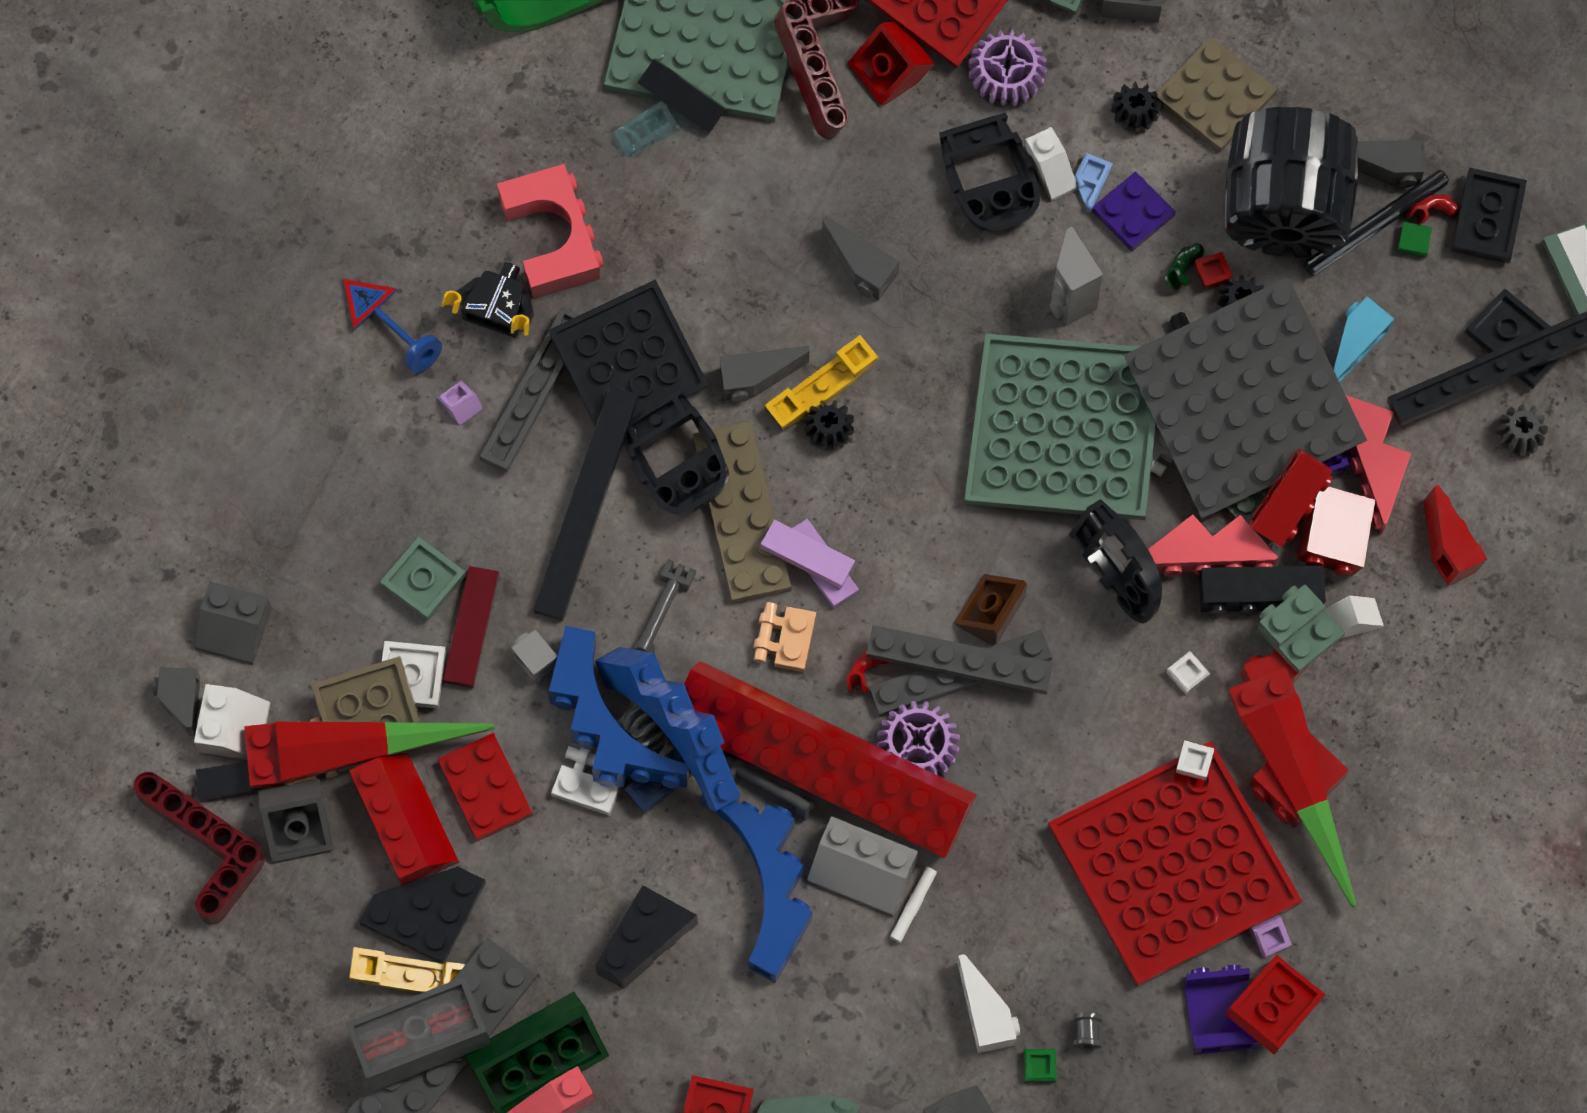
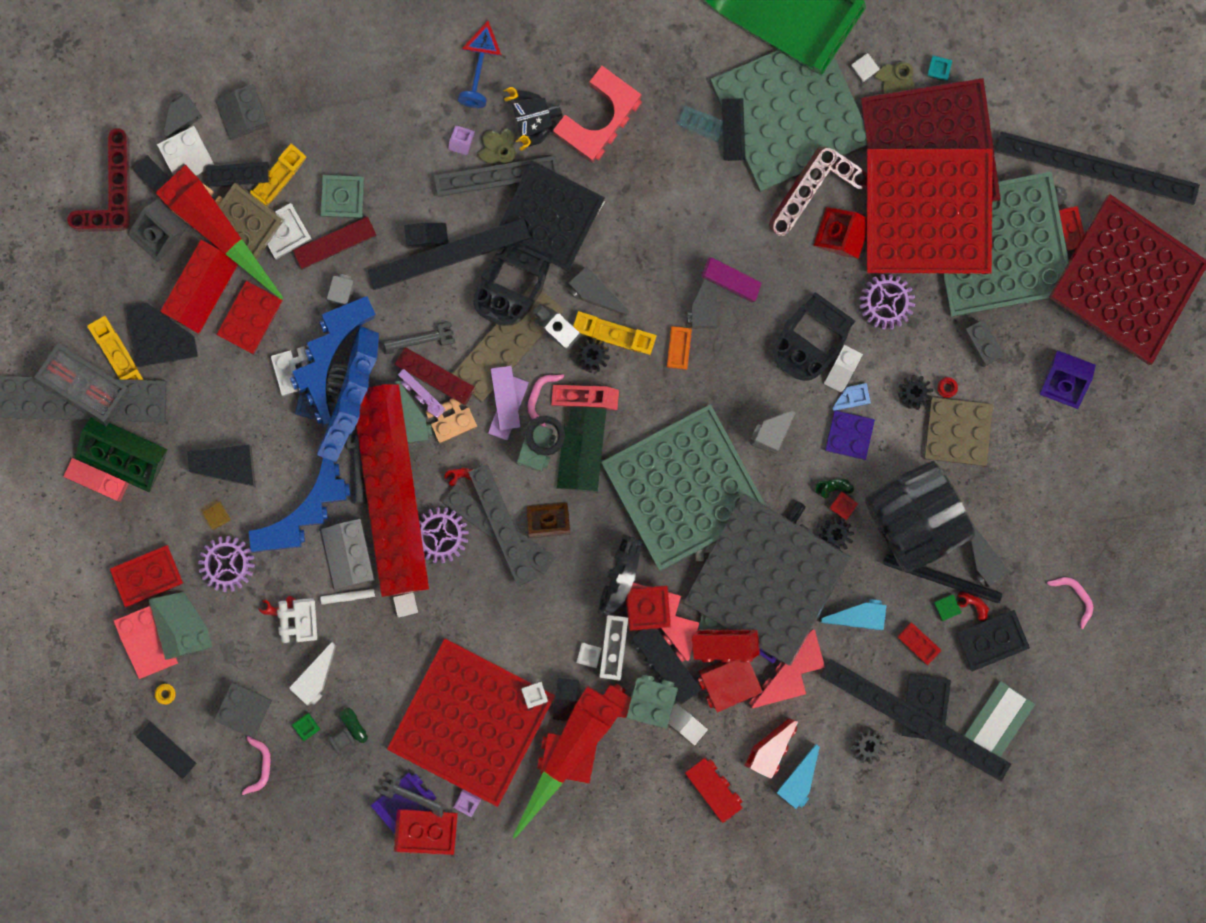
camera: 50 degrees right, 15 degrees up
(307, 669) = (238, 173): none -> black plate
(339, 627) = (280, 174): none -> yellow slope
(497, 368) = (496, 144): none -> olive plate
(541, 517) = (425, 234): none -> black slope
(699, 993) = (216, 516): none -> clear yellow plate
(720, 618) = (435, 376): none -> dark red plate
(731, 644) = (422, 395): none -> lavender hinge
(762, 994) = (220, 571): none -> lavender gear
(767, 435) = (556, 326): none -> torso
(767, 676) = (415, 423): none -> sand green slope
(827, 524) = (535, 393): none -> bright pink animal
(856, 211) = (731, 279): none -> magenta tile
(872, 466) = (585, 396): none -> coral slope
(874, 989) = (273, 610): none -> red piece
(888, 556) = (544, 438): none -> sand green slope
(891, 327) = (679, 348): none -> orange tile
(902, 503) = (541, 420): none -> black tyre
(906, 972) = (304, 620): none -> white plate
(933, 511) = (581, 449): none -> clear green slope
(973, 843) = (405, 605): none -> white tile
(1071, 1003) = (351, 721): none -> dark green piece
(1154, 64) = (954, 387): none -> red plate
(1184, 557) = (648, 608): none -> red tile
(1191, 1010) = (392, 788): none -> dark grey hinge
(1201, 633) = (613, 647): none -> white brick
(1224, 729) = (565, 698): none -> black slope
(1436, 296) = (919, 643): none -> red plate
(1454, 637) = (714, 789): none -> red brick
(1500, 88) = (1081, 593): none -> bright pink animal
(1510, 532) = (798, 784): none -> medium azure slope

